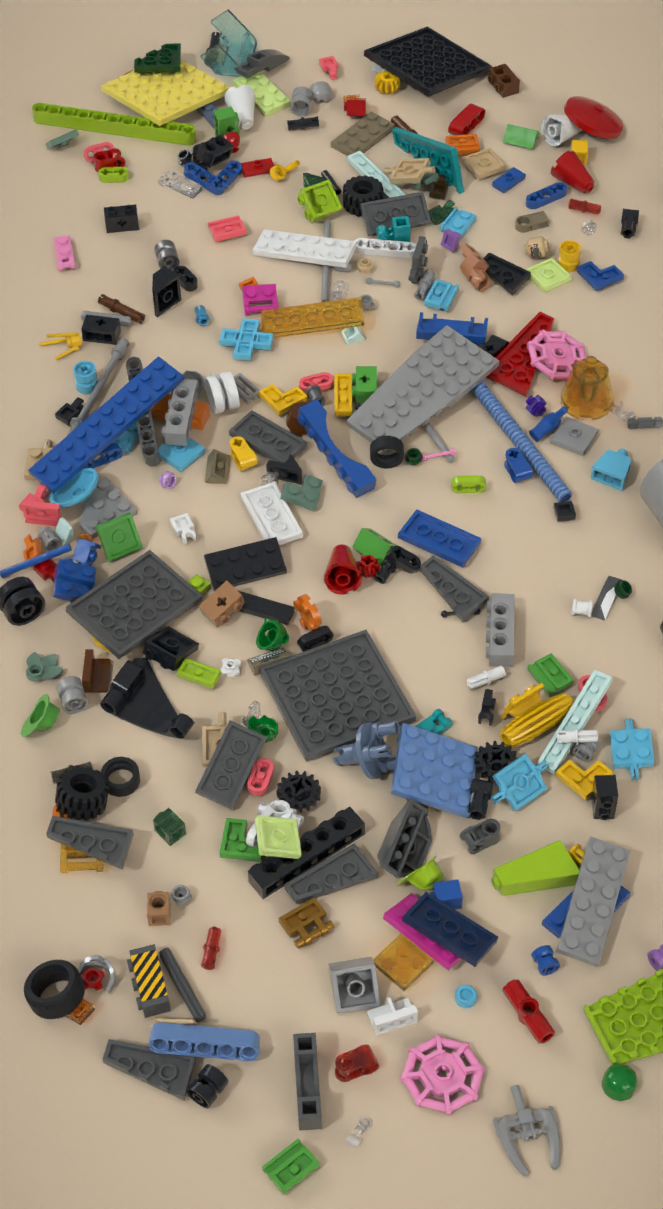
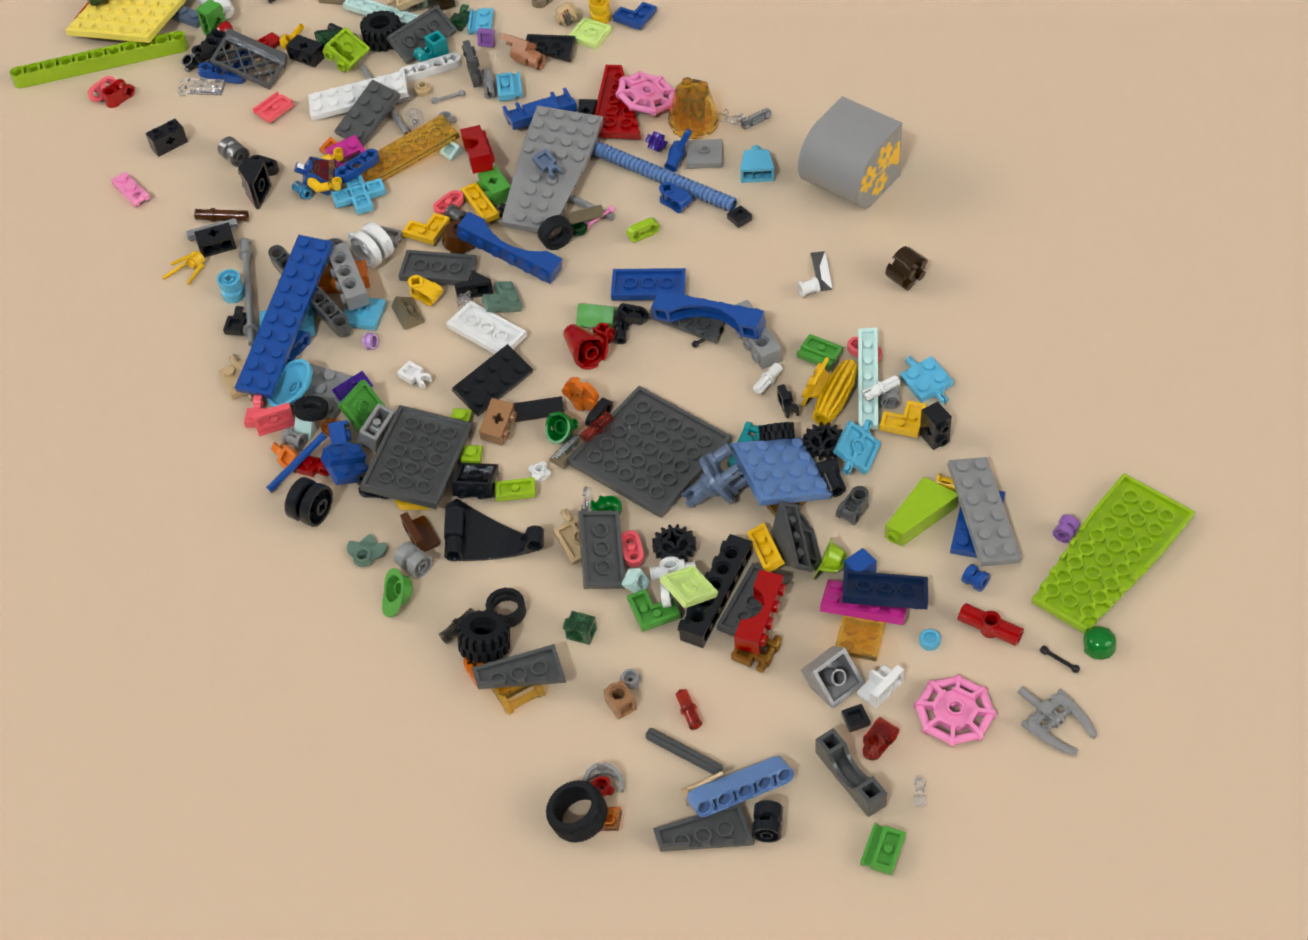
camera: 25 degrees left, 0 degrees up
(62, 140) = (58, 92): sand green plate -> none
(74, 525) = (310, 402): none -> black tyre
(113, 174) = (130, 103): lime beam -> none
(117, 558) = (375, 427): none -> light grey brick
(135, 510) = (344, 388): none -> dark purple plate
(148, 981) = (654, 762): brick -> none
(184, 624) = (472, 454): none -> lime plate
(224, 305) = (319, 172): none -> torso
(244, 170) = (255, 49): none -> dark grey fence
(244, 808) = (635, 580): none -> light aqua slope
(274, 310) = (370, 157): none -> blue beam
(286, 187) = (305, 50): none -> black brick
(300, 268) = (367, 112): none -> dark grey plate
(301, 650) = (596, 426): none -> clear red axle
(306, 907) = (752, 632): none -> red arch
(348, 1033) = (855, 718): none -> black plate
(367, 351) = (478, 149): none -> red arch
(374, 835) = (765, 548): none -> yellow plate
(417, 382) = (546, 162): none -> sand blue plate
(423, 447) = (584, 214): none -> dark tan slope
(441, 570) = (744, 320): none -> blue arch
(455, 732) = (777, 431): none -> black tyre
(580, 1094) = (1044, 650): none -> black hinge
(622, 589) = (831, 257): dark green plate -> none

